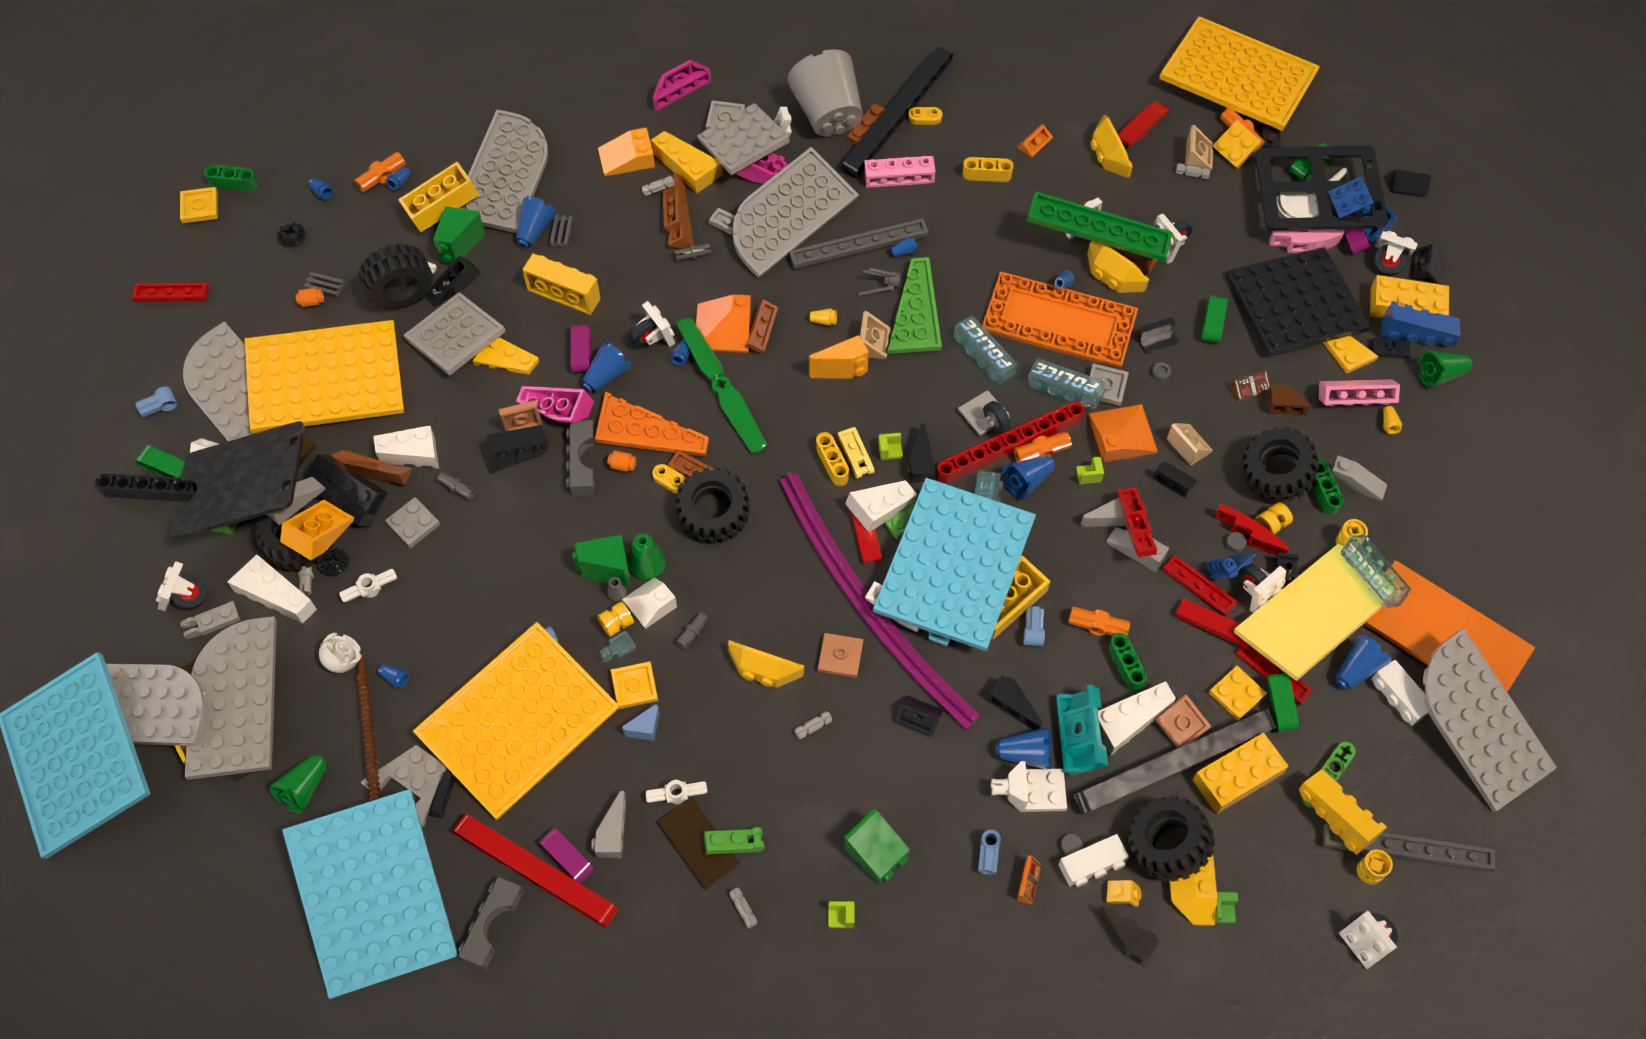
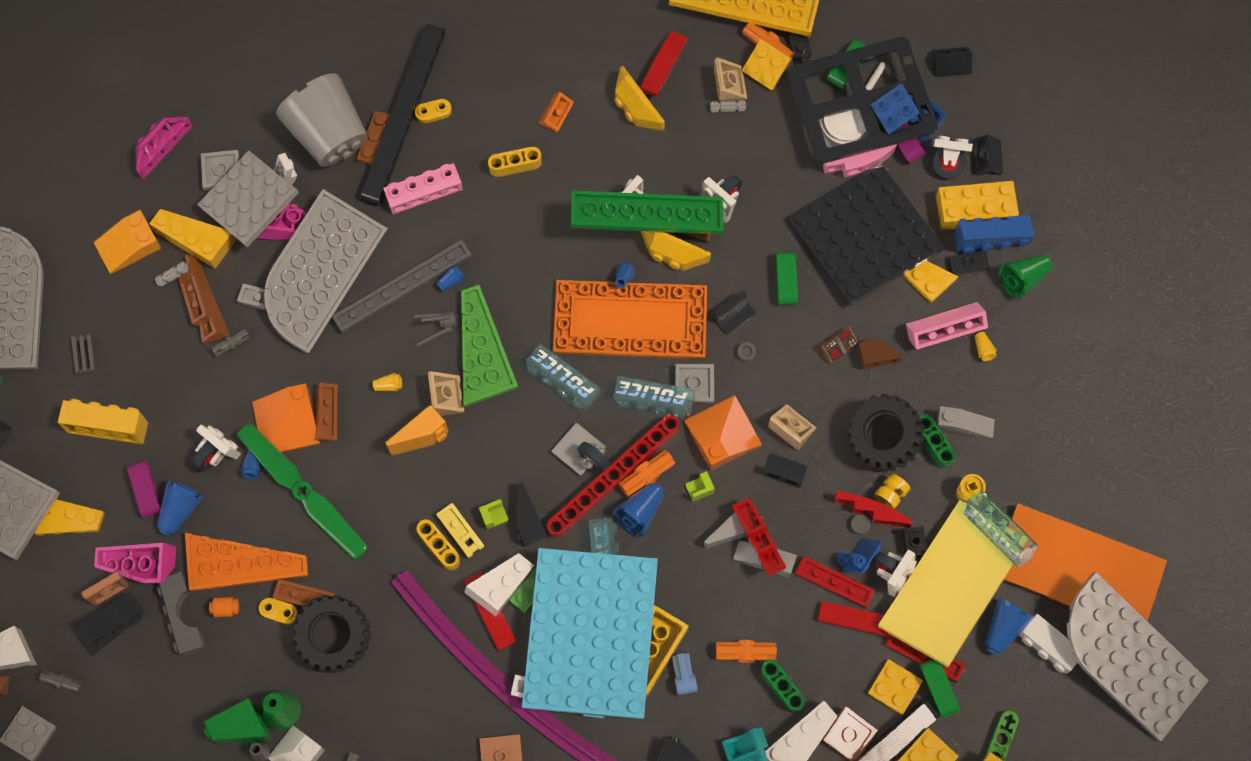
camera: 15 degrees left, 10 degrees up
(533, 220) = (50, 354): blue cone -> none

